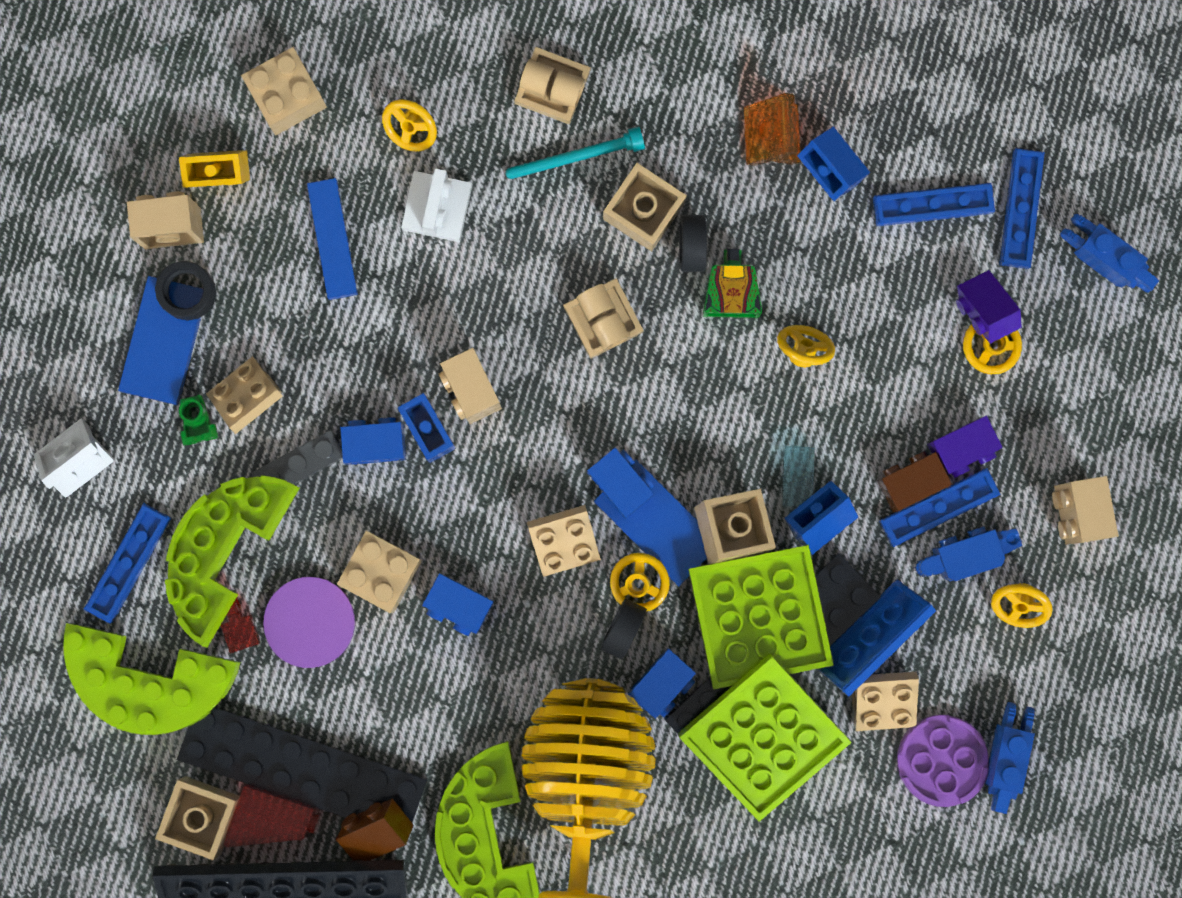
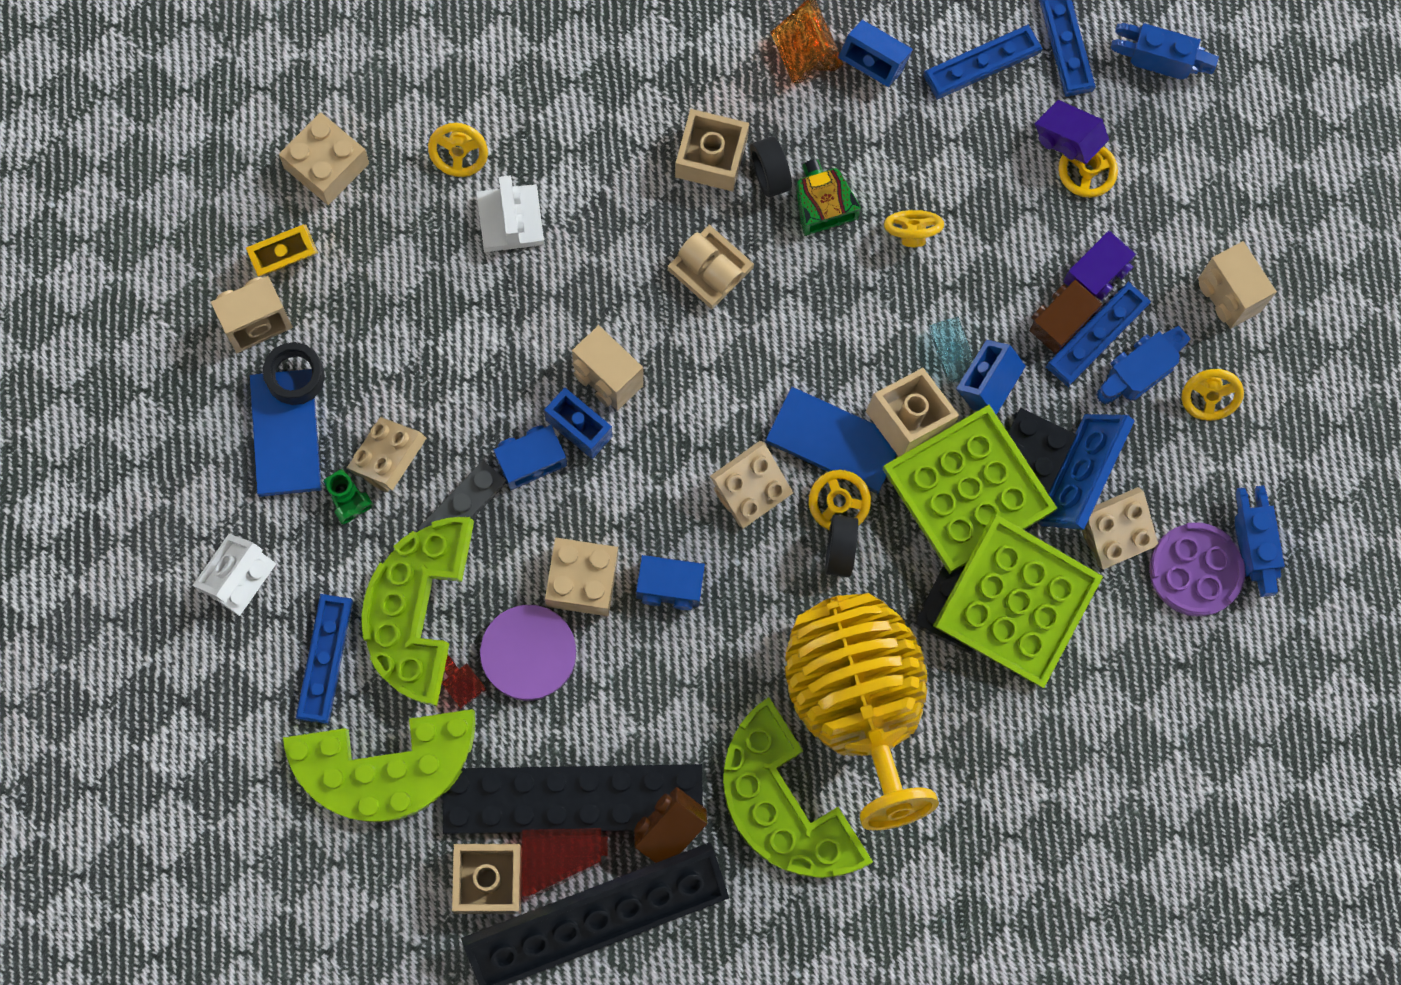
camera: 20 degrees left, 10 degrees down
(332, 239) = (419, 281): blue tile -> none
(552, 85) = (581, 71): tan plate -> none
(620, 482) = (786, 409): blue brick -> none
(631, 140) = (674, 96): teal piece -> none
(662, 684) = (900, 583): blue brick -> none

